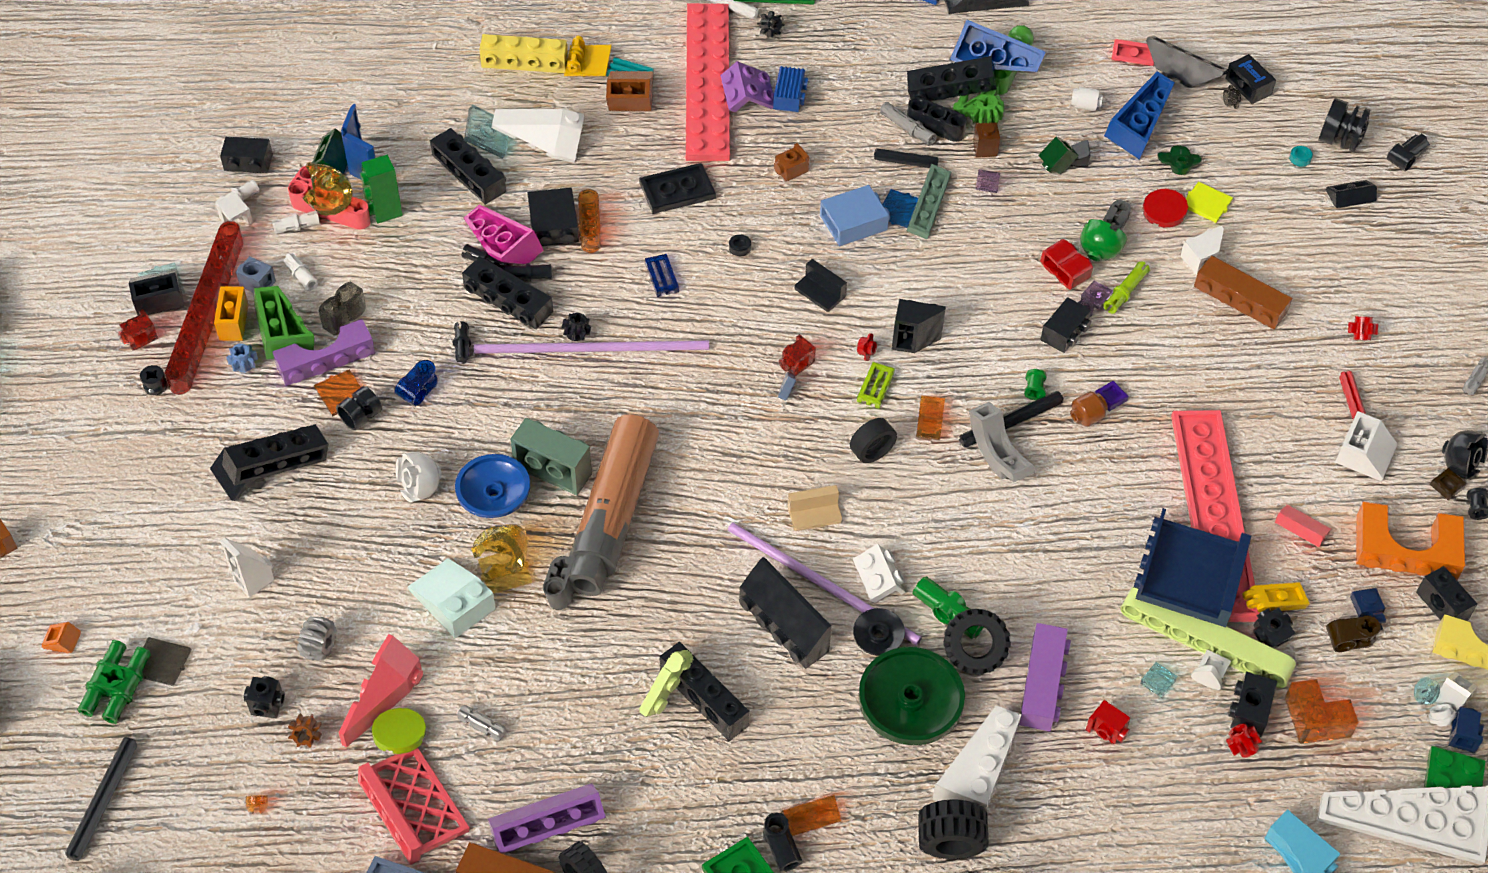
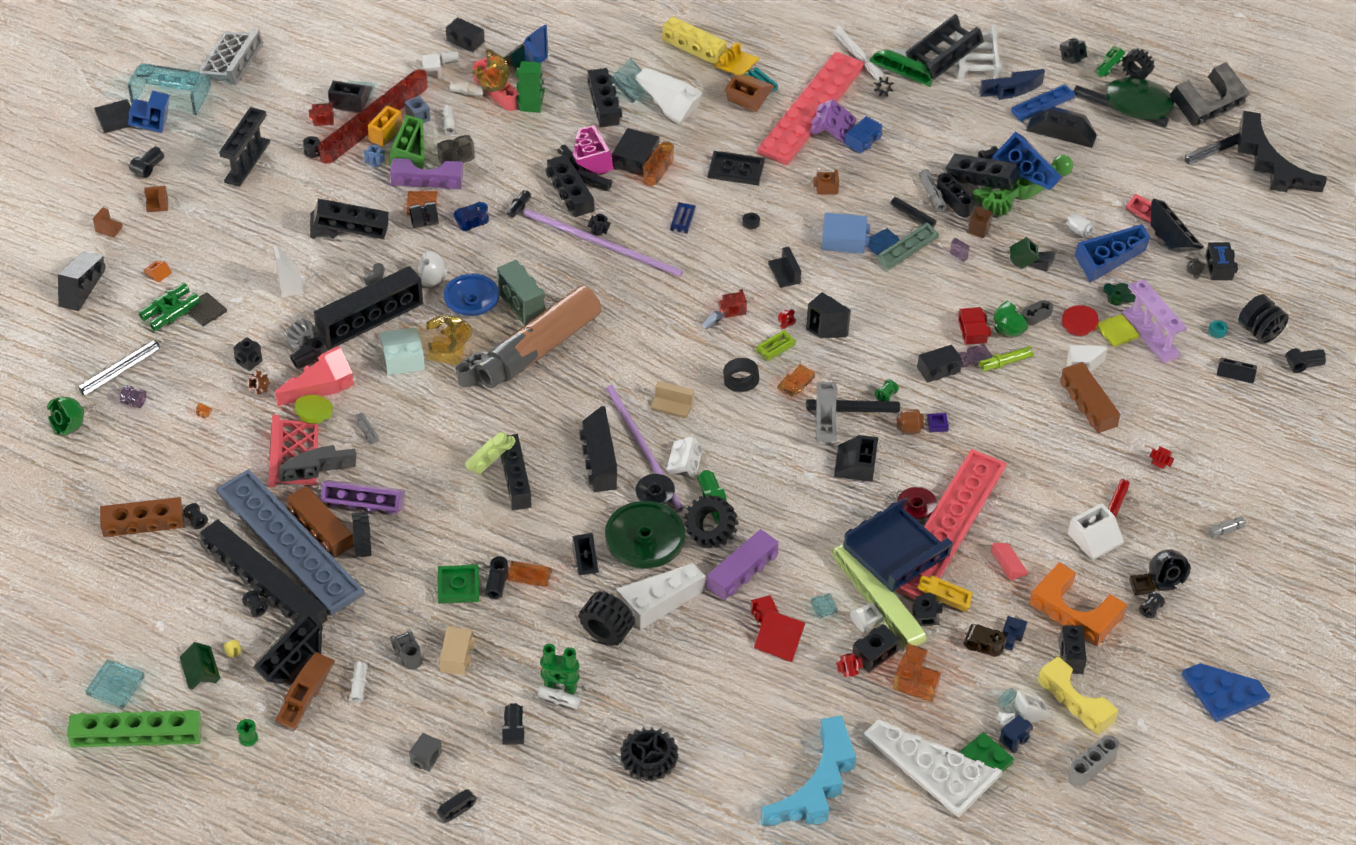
camera: 30 degrees right, 5 degrees down
(73, 419) = (242, 138): none -> black fence
(147, 831) = (132, 396): none -> clear purple wheel
(342, 659) = (309, 353): none -> black piece
(352, 512) = (377, 274): none -> dark grey arm
(379, 562) = (369, 307): none -> black brick
(453, 806) = (311, 462): none -> dark grey slope
(860, 757) = (585, 554): none -> black slope
(937, 57) = (988, 153): none -> black bush
(1068, 481) = (857, 458): none -> black slope
(1146, 744) = (779, 635): none -> red piece
(1167, 496) = (918, 501): none -> dark red dish
(1240, 189) = (1146, 328): none -> lavender fence

